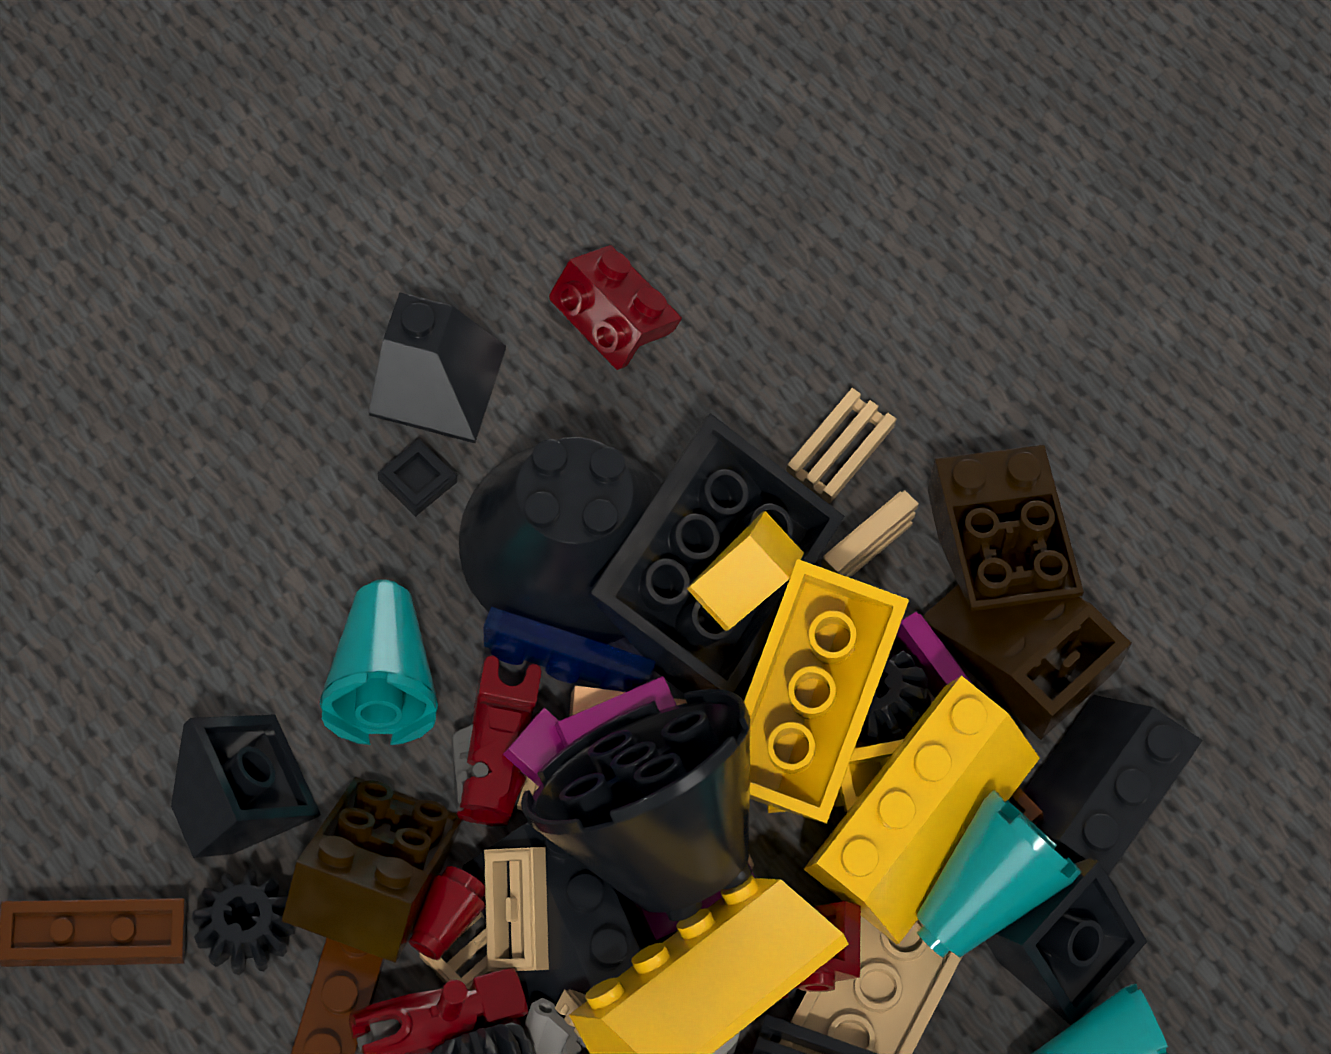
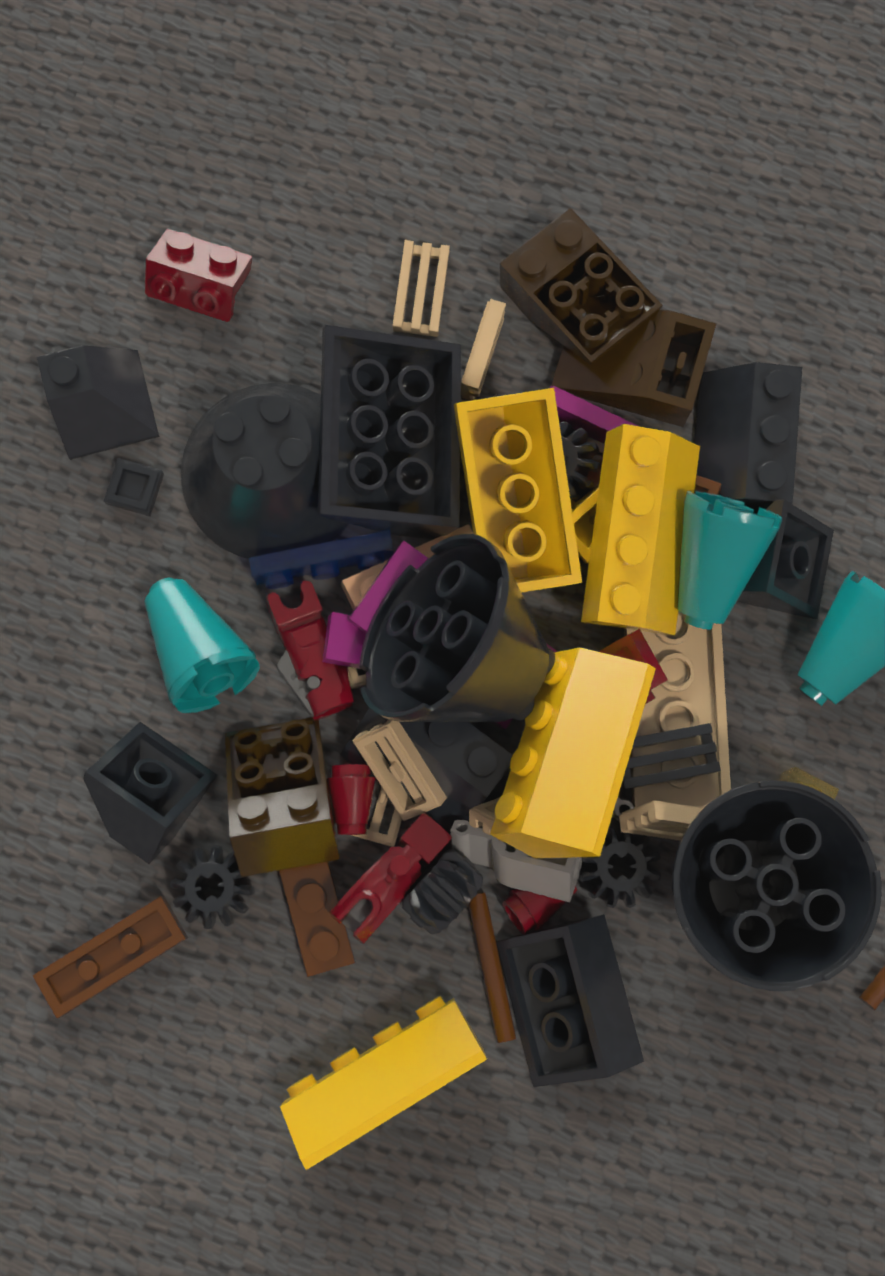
camera: 25 degrees left, 15 degrees up
(746, 572) = (421, 429): yellow slope -> none

